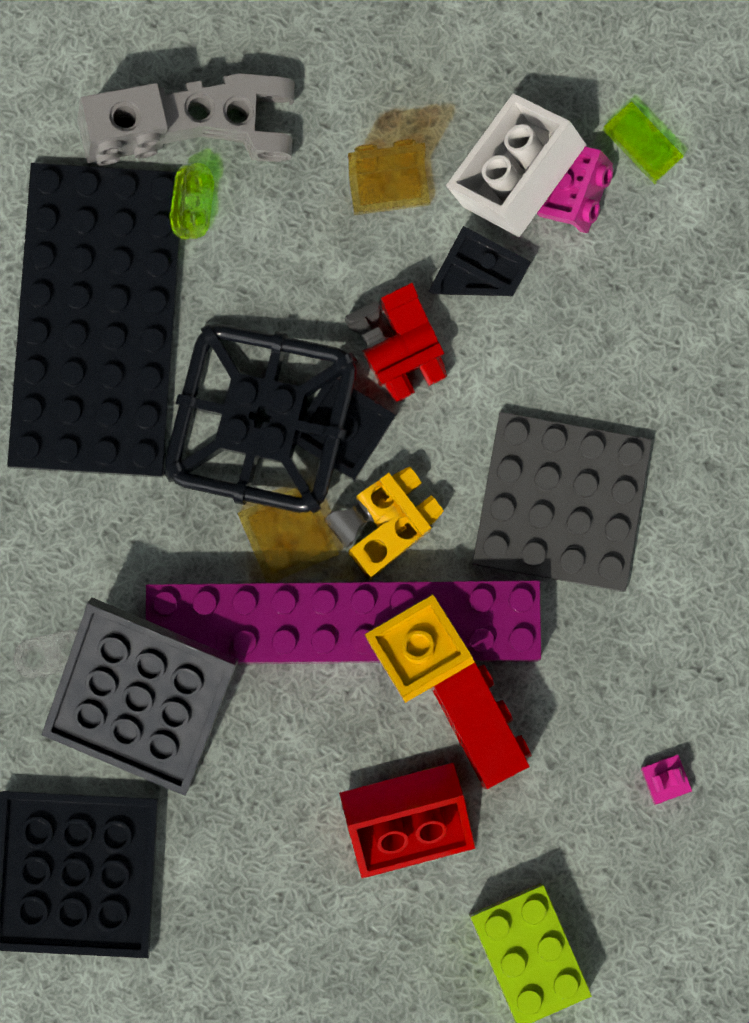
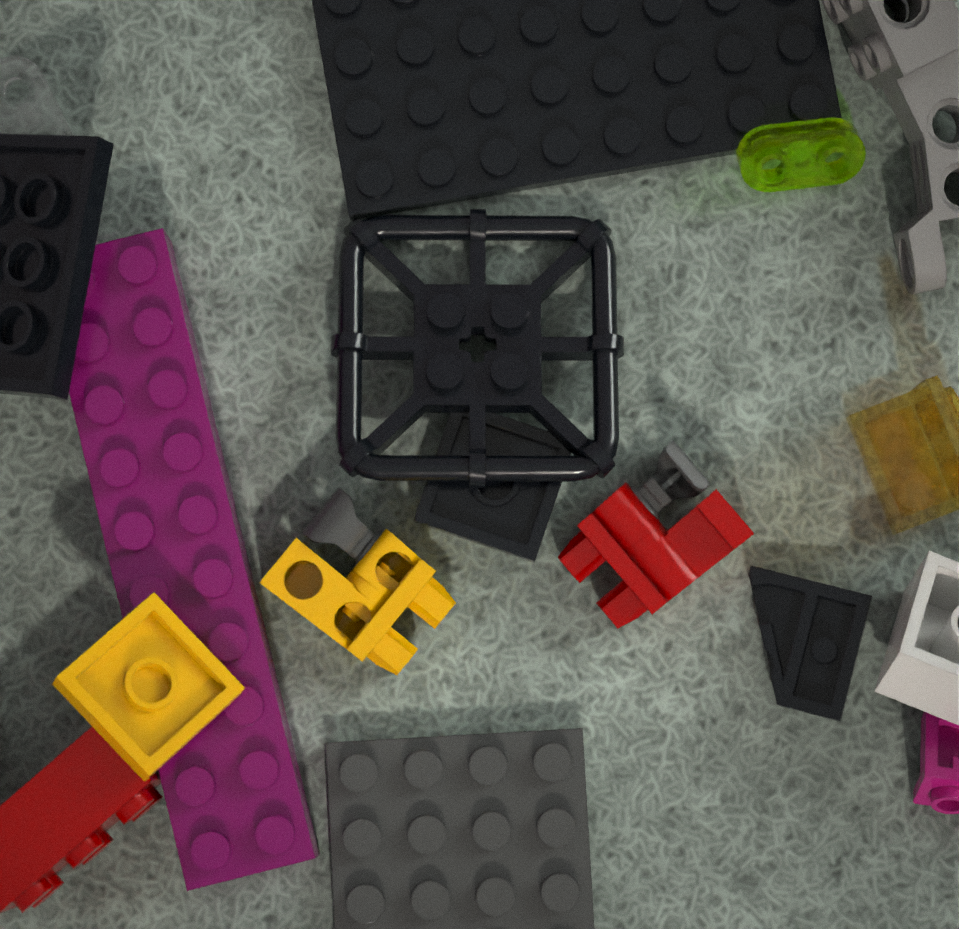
camera: 80 degrees right, 0 degrees up
(286, 539) = (291, 439): clear yellow plate -> none

